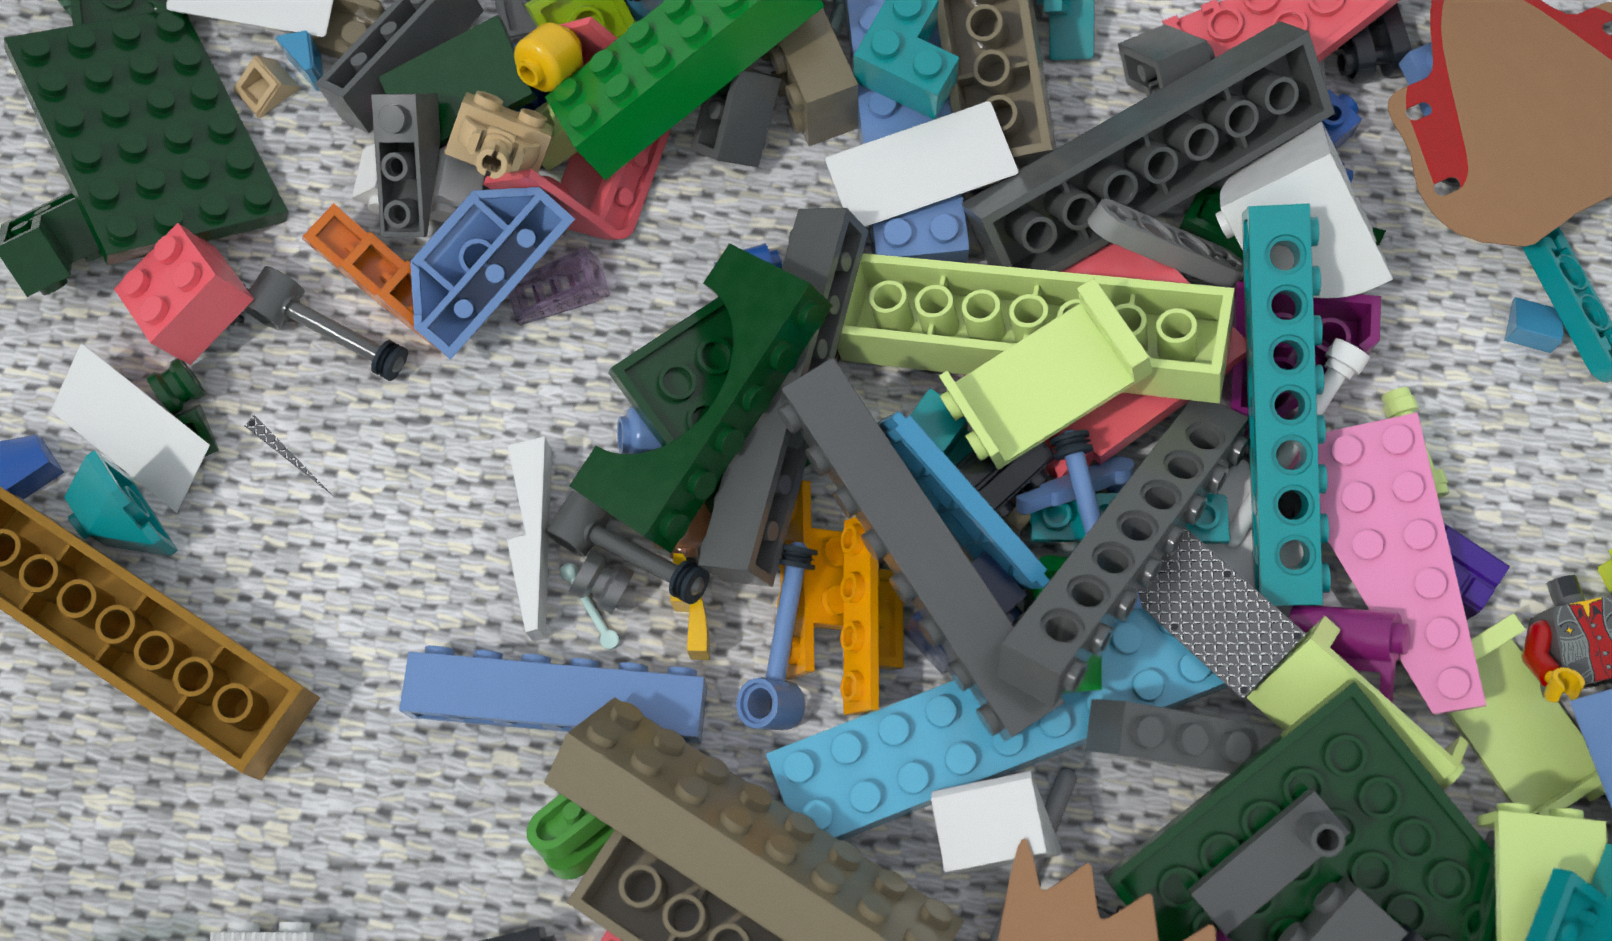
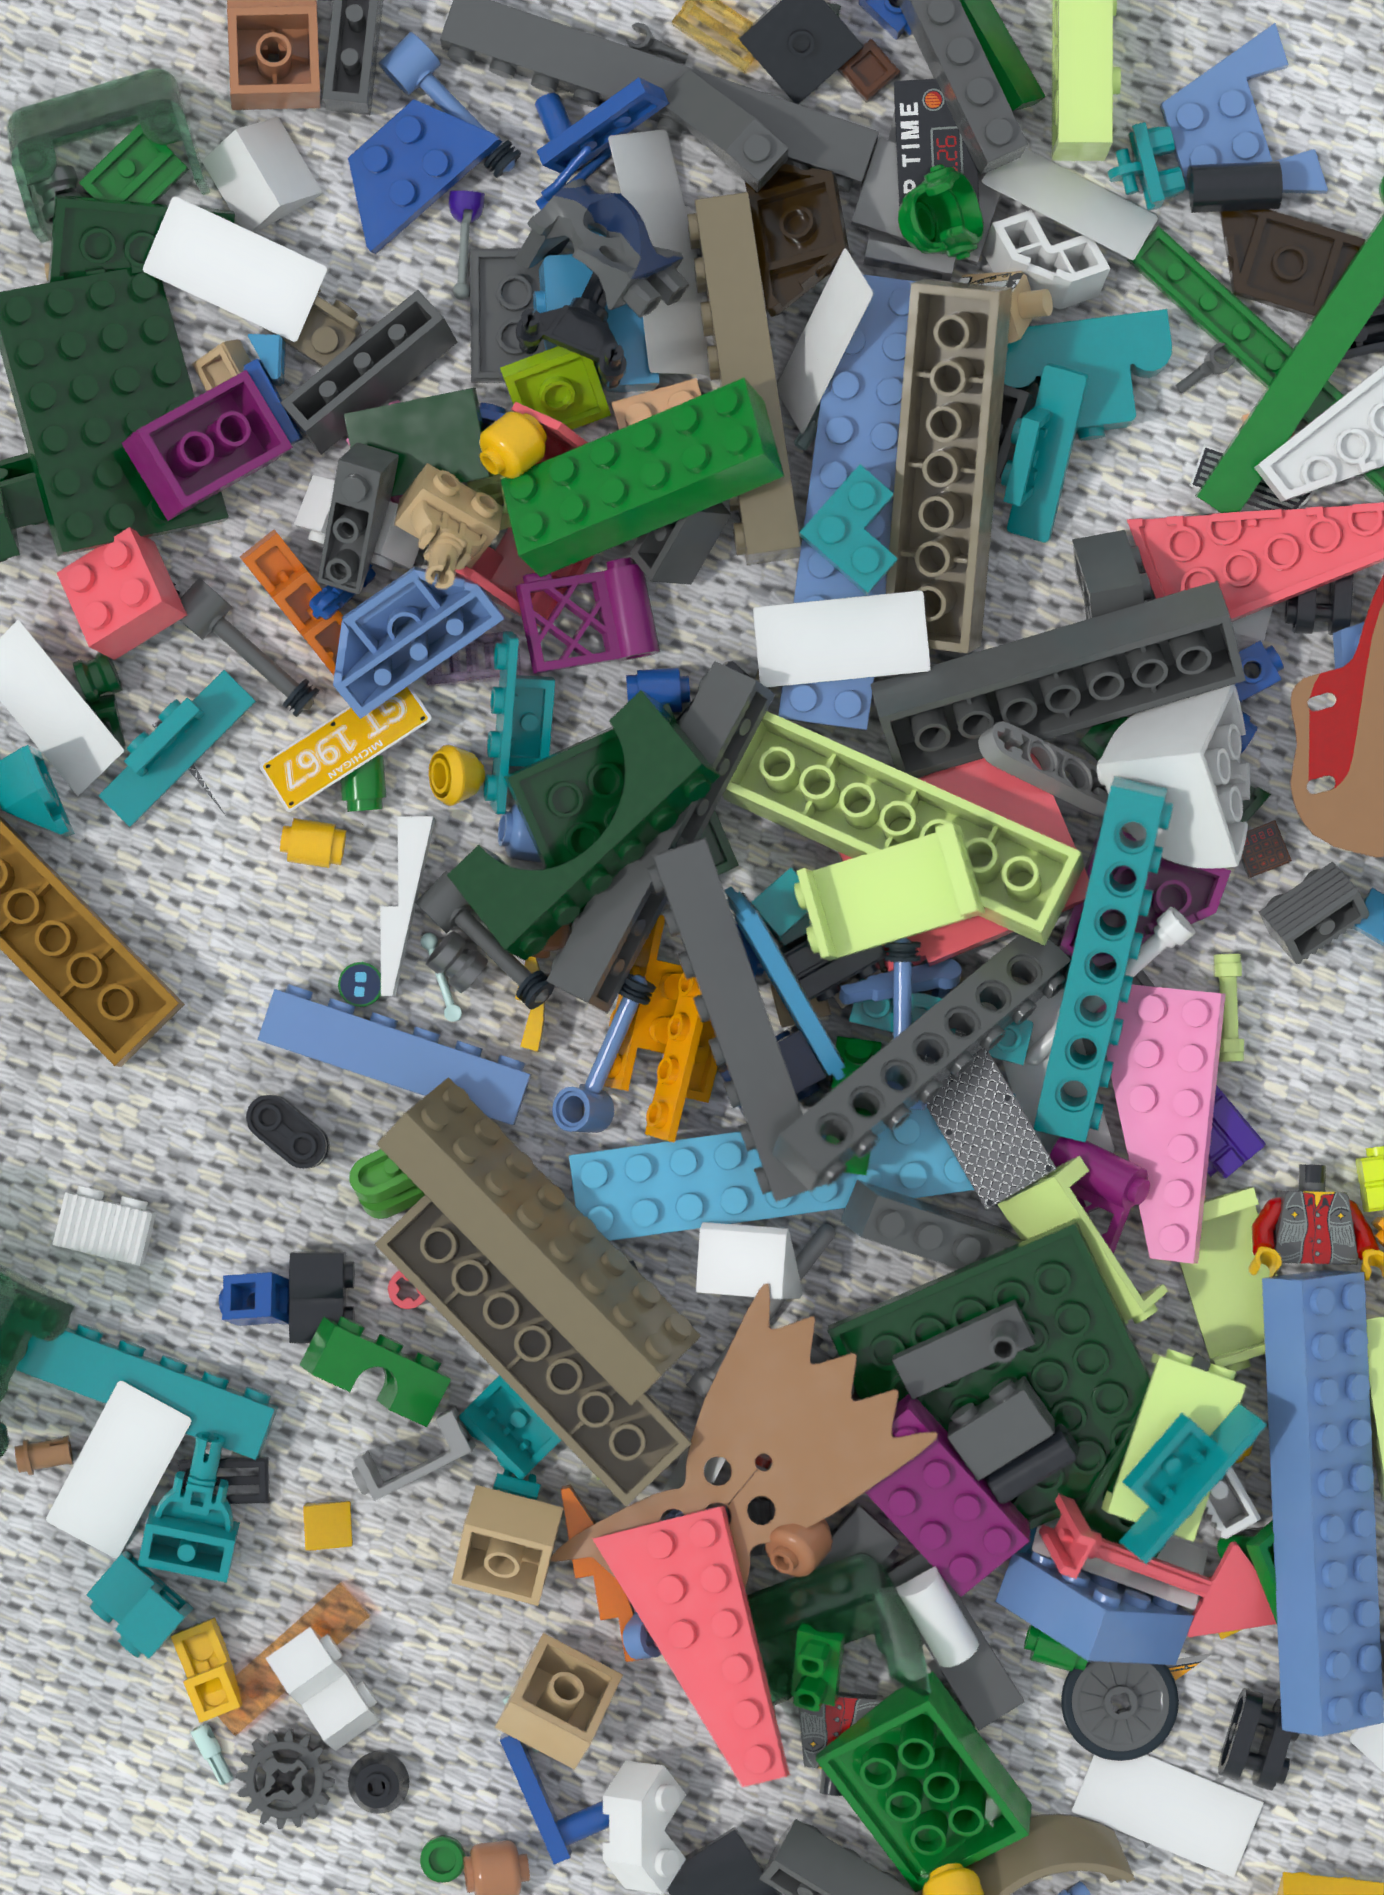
camera: 10 degrees right, 15 degrees up
(245, 133) = (206, 445): none -> magenta brick
(263, 434) = (174, 746): none -> teal bracket
(312, 96) = (271, 396): none -> blue tile
(404, 248) = (330, 599): none -> blue axle
(427, 497) = (313, 843): none -> yellow brick
(440, 391) = (341, 747): none -> yellow sticker
(452, 805) = (287, 1131): none -> black brick
(467, 424) = (365, 786): none -> green brick
(504, 632) = (360, 984): none -> dark blue tile
(561, 396) = (455, 774): none -> yellow cone
(617, 323) = (522, 720): none -> teal bracket
(695, 206) = (622, 611): none -> magenta piece
(1401, 290) = (1264, 849): none -> tile
(1473, 325) = (1314, 912): none -> dark grey brick

